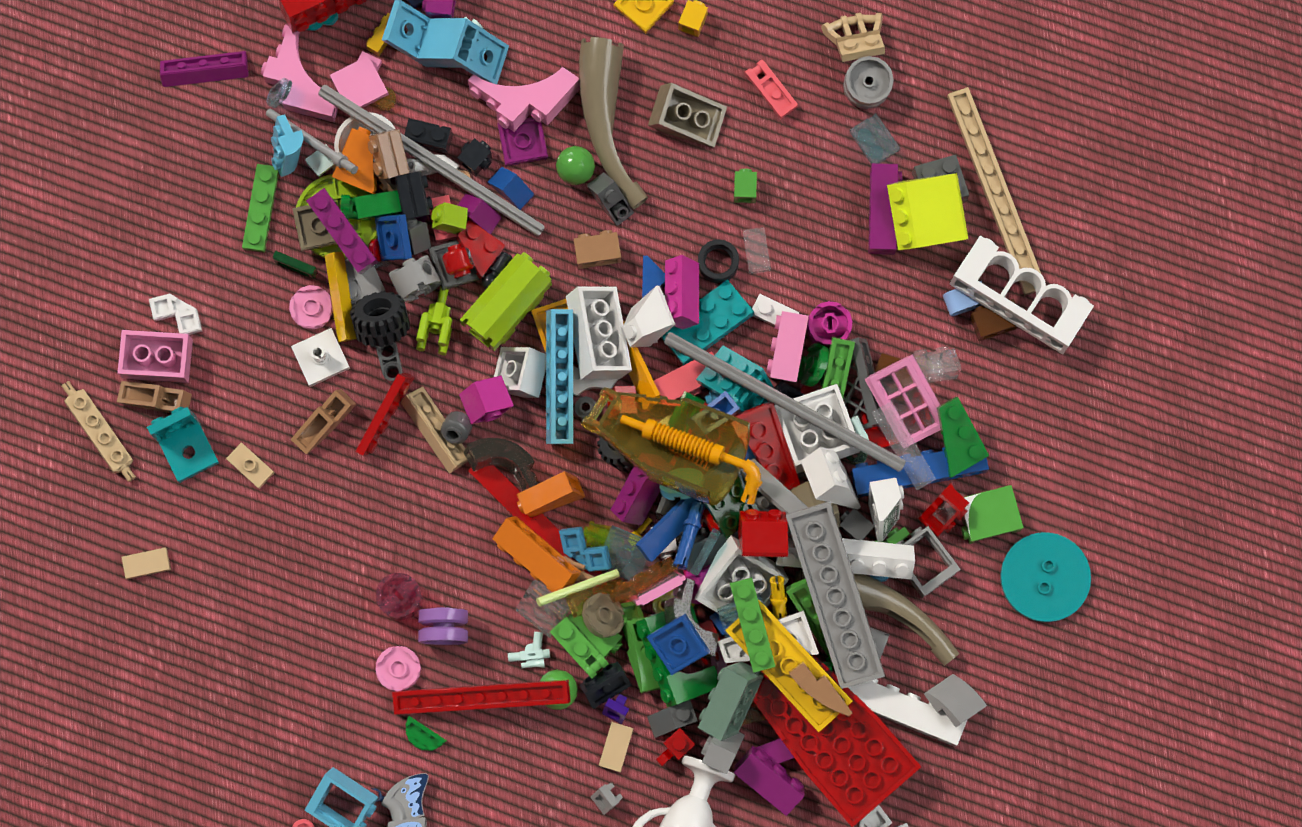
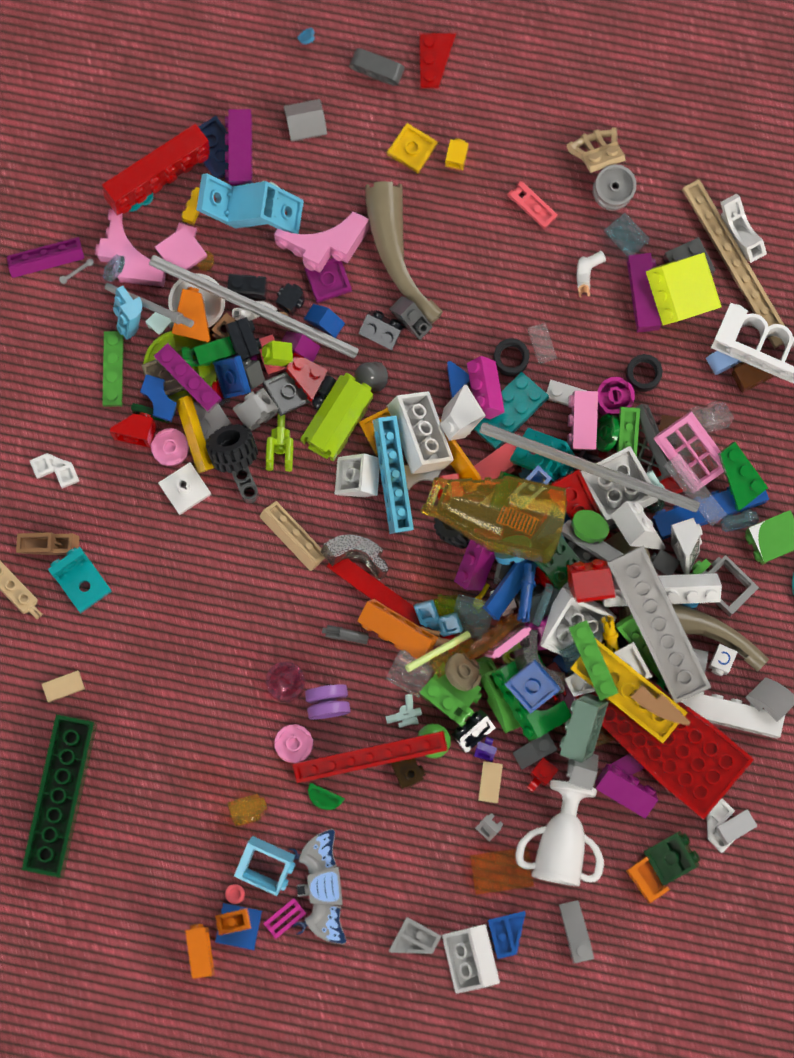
camera: 10 degrees left, 0 degrees up
(120, 688) = (59, 796): none -> dark green brick
(155, 356) = (43, 508): bright pink brick -> none
(221, 97) = (63, 279): none -> light grey hinge
(250, 465) = (139, 589): tan plate -> none
(274, 282) = (135, 430): none -> red slope
(302, 238) = (154, 389): none -> blue tile
(323, 421) = (196, 542): medium nougat slope -> none
(331, 736) = (247, 809): none -> clear yellow brick
(384, 413) = (250, 523): red wing -> none
(388, 154) = (217, 306): medium nougat brick -> none
(456, 427) = (311, 531): dark grey head -> none
(458, 261) = (290, 389): red head -> none
(471, 550) = (345, 634): none -> dark grey piece
(486, 400) = (333, 503): dark pink head -> none
(523, 722) = (408, 772): none -> dark brown brick
(550, 494) = (400, 576): orange slope -> none
(555, 258) = (372, 374): none -> dark grey hair
(574, 207) = (381, 329): none -> bracket
(575, 165) = (377, 293): bright green piece -> none
(578, 406) = (418, 504): dark grey plate -> none
(597, 249) = (407, 362): medium nougat brick -> none
(687, 115) = (464, 237): dark tan slope -> none
(698, 448) = (526, 517): light orange piece -> none
(745, 186) = (524, 290): bright green brick -> none
(776, 470) = (590, 526): none -> bright green tile
(818, 173) = (584, 269): none -> white arm
(864, 285) = (647, 359): none -> black tyre
(905, 647) = (722, 660): none -> white brick
(944, 510) = (737, 539): red window -> none
(961, 485) = (739, 521): none -> clear light blue plate
(1002, 140) = (738, 225): none -> white arch

